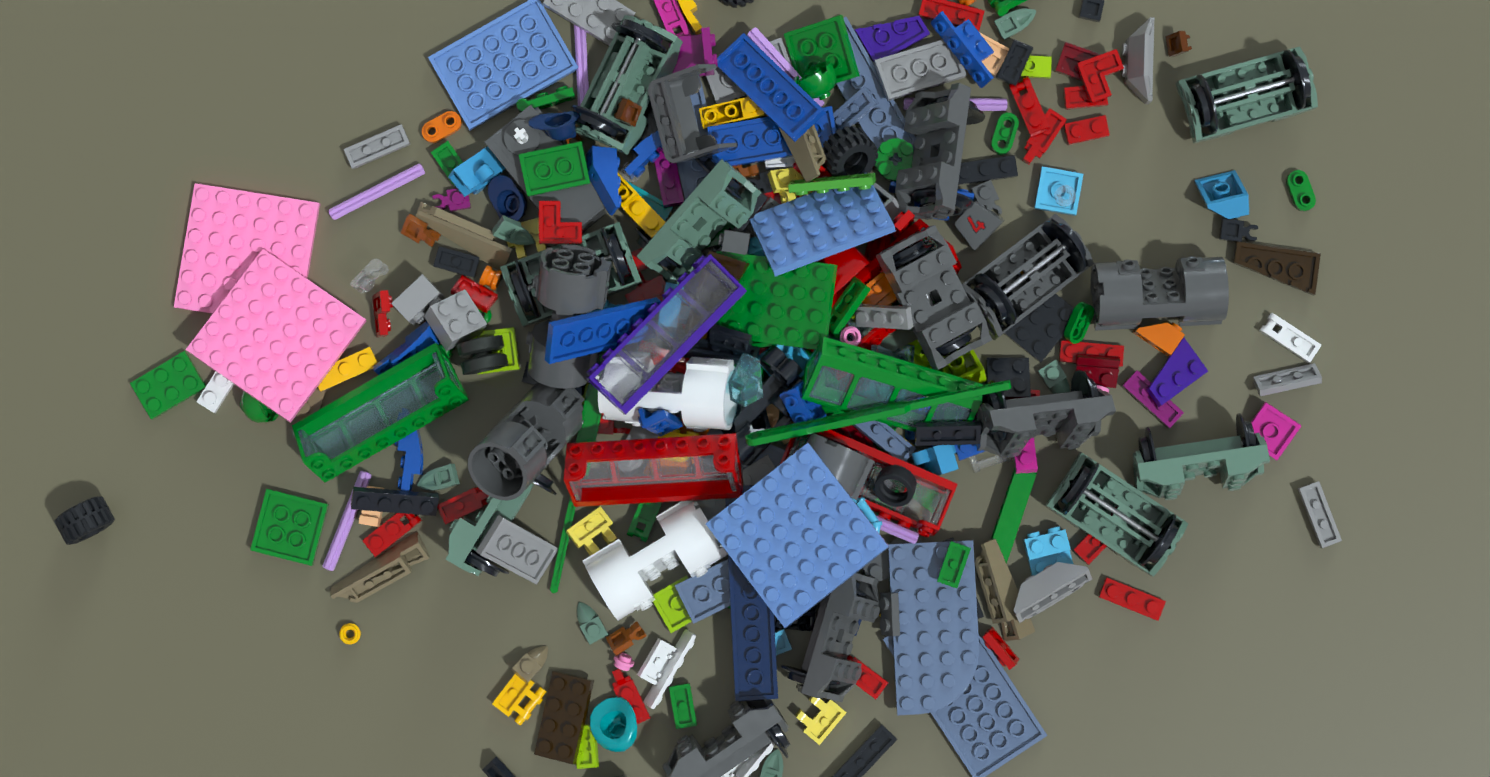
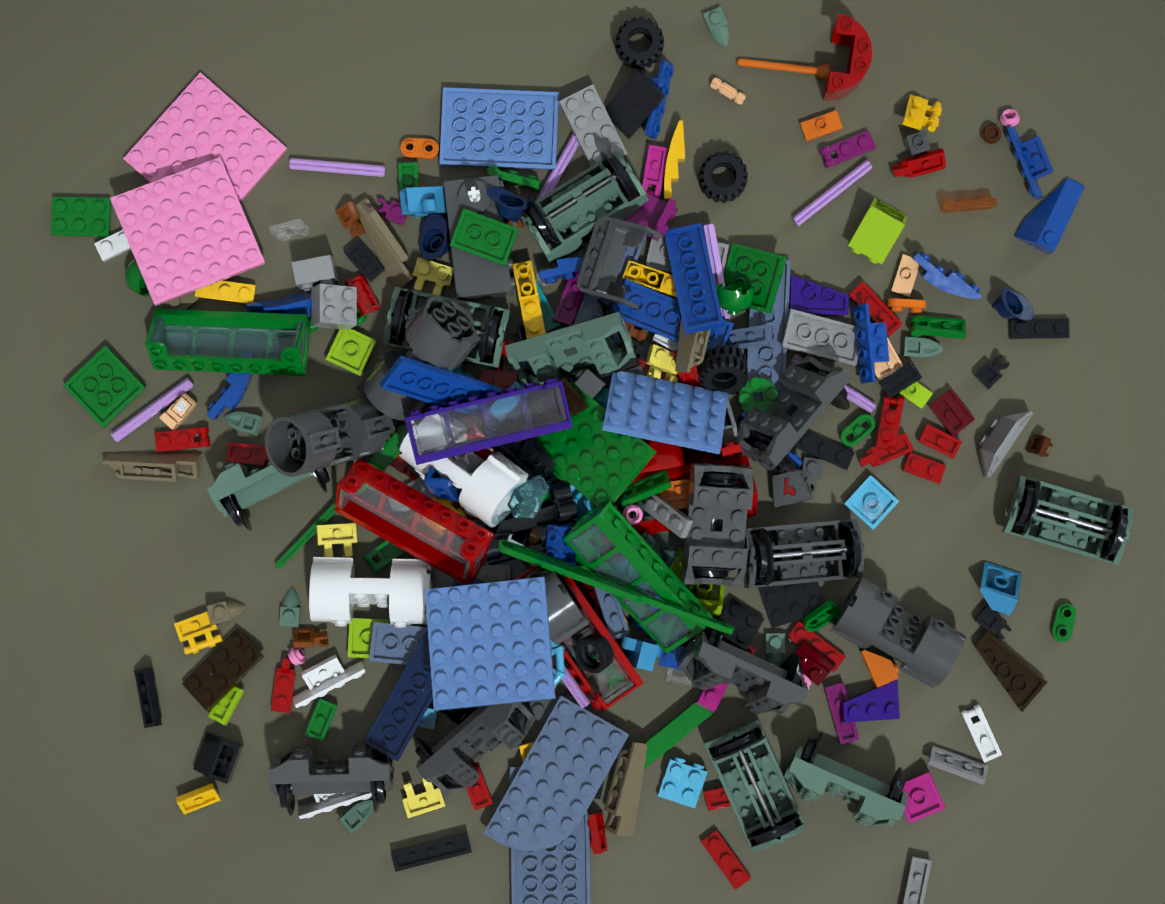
camera: 35 degrees right, 0 degrees up
(343, 633) = (93, 496): yellow plate -> none
(377, 146) = (359, 132): light grey plate -> none
(381, 306) = (284, 259): red plate -> none
(394, 501) = (197, 418): black plate -> none
(482, 352) = (337, 347): pearl dark grey wheel -> none
(491, 277) = (383, 290): orange wheel -> none
(512, 232) = (421, 265): sand green plate -> none
(517, 549) = (268, 516): light grey plate -> none
(552, 229) = (453, 283): red plate -> none
(603, 174) = (519, 267): blue slope -> none
(614, 724) = (258, 700): teal hat -> none
(628, 112) = (569, 229): reddish brown tile -> none
(841, 183) = (702, 389): bright green plate -> none
(889, 614) = (527, 750): dark grey plate -> none
(947, 433) = (660, 638): black plate -> none
(953, 564) = (601, 744): green plate -> none
(1048, 588) = (664, 809): light grey wedge -> none
(1094, 72) = (959, 425): red plate -> none

